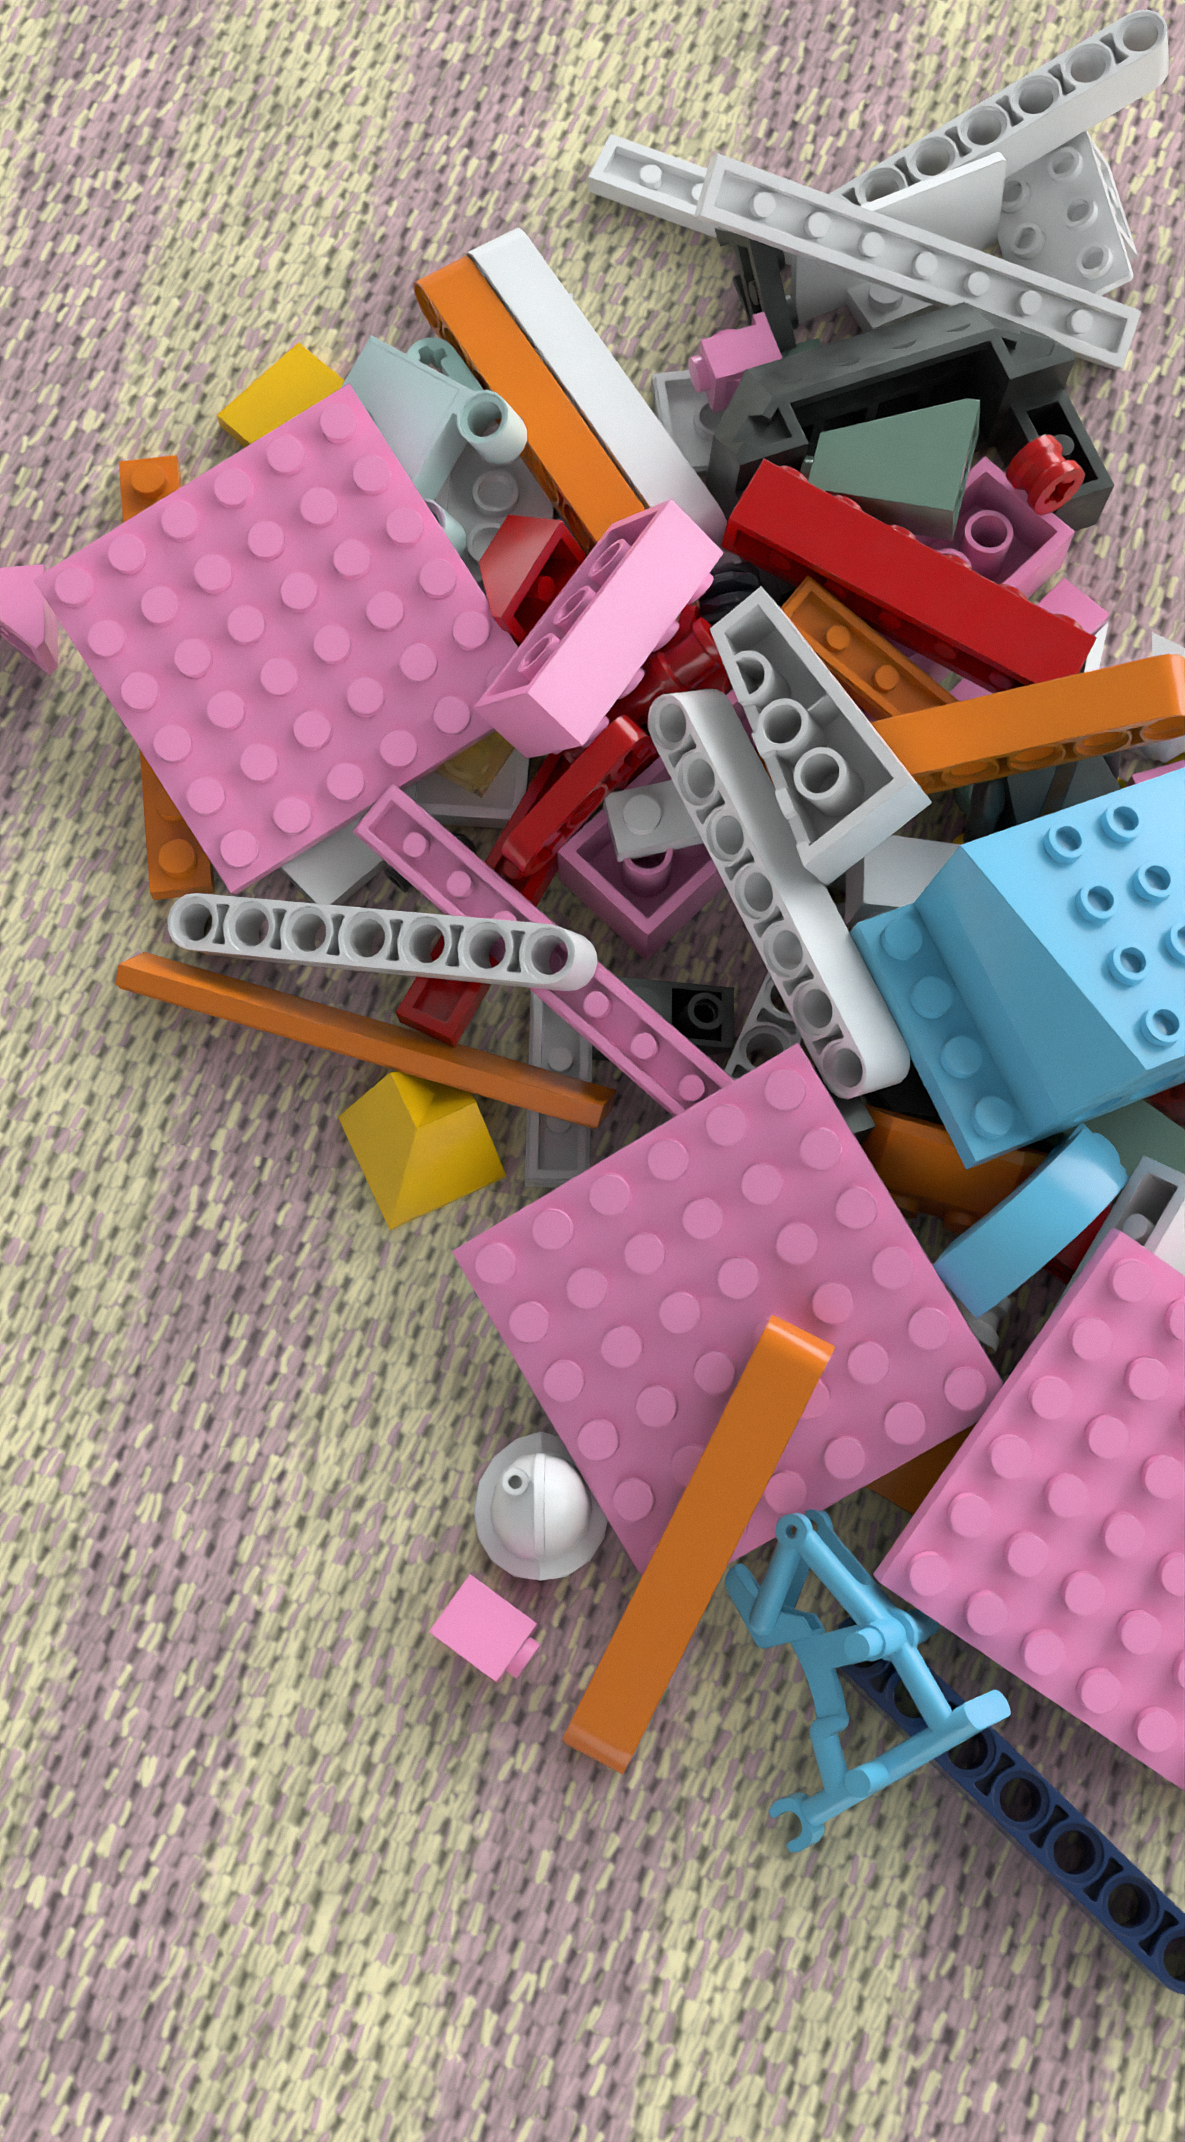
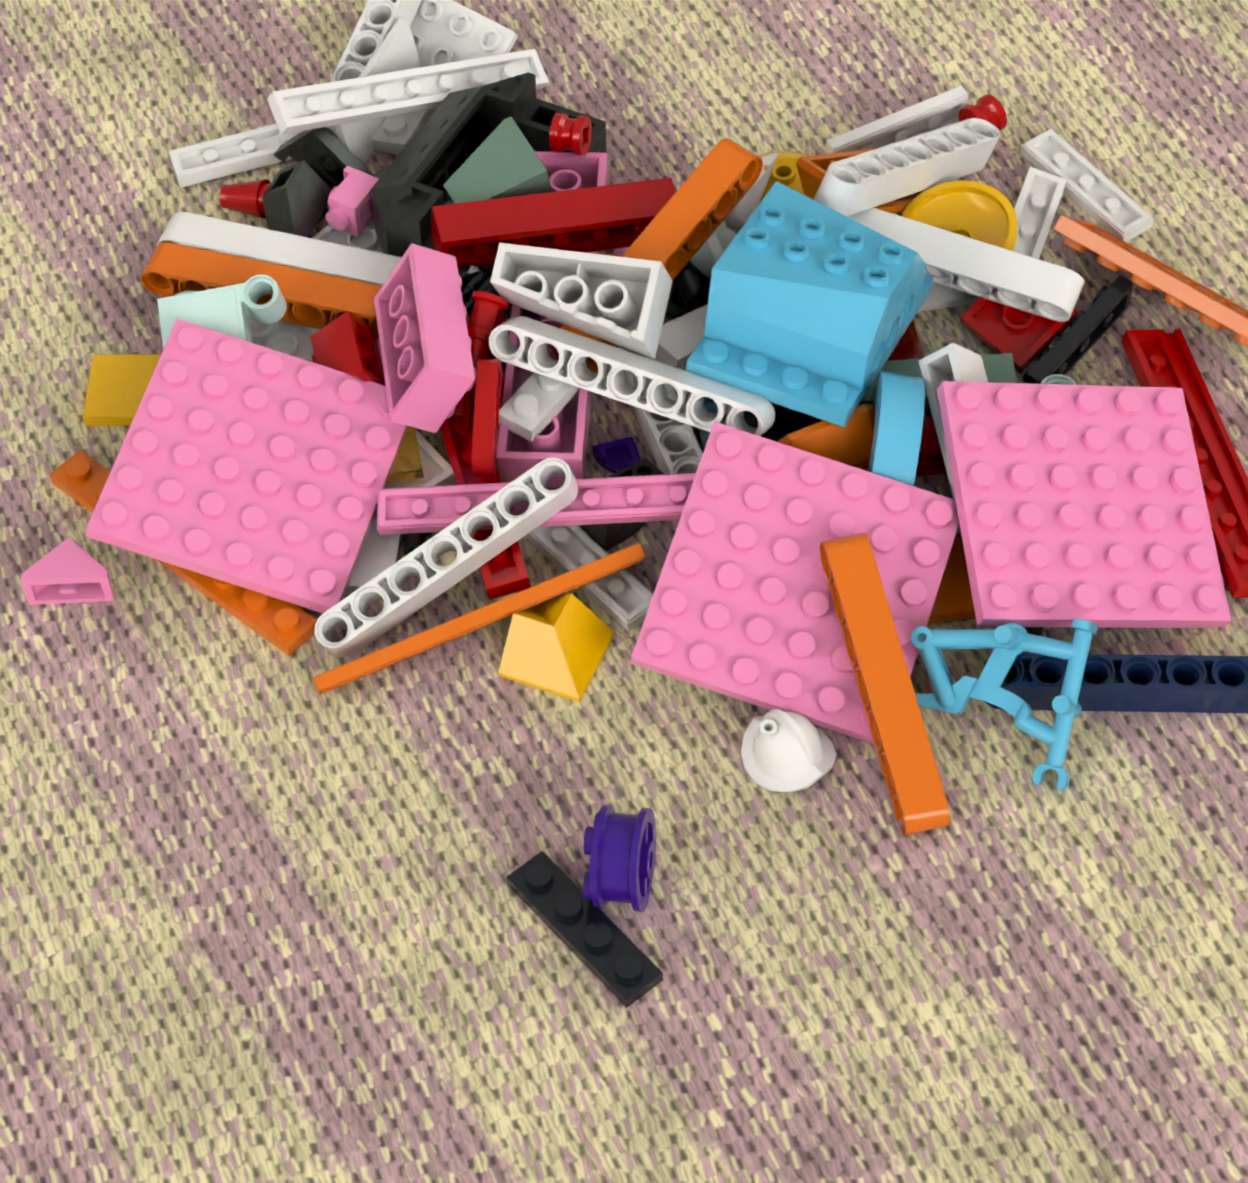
camera: 40 degrees left, 20 degrees down
(121, 1528) = (584, 929): none -> black plate
(209, 1495) = (620, 858): none -> dark purple wheel
(487, 1631) = (820, 815): bright pink brick -> none
(646, 268) = (245, 197): none -> red cone
(671, 318) = (296, 200): none -> pearl dark grey slope
(727, 949) = (616, 454): none -> dark purple tile

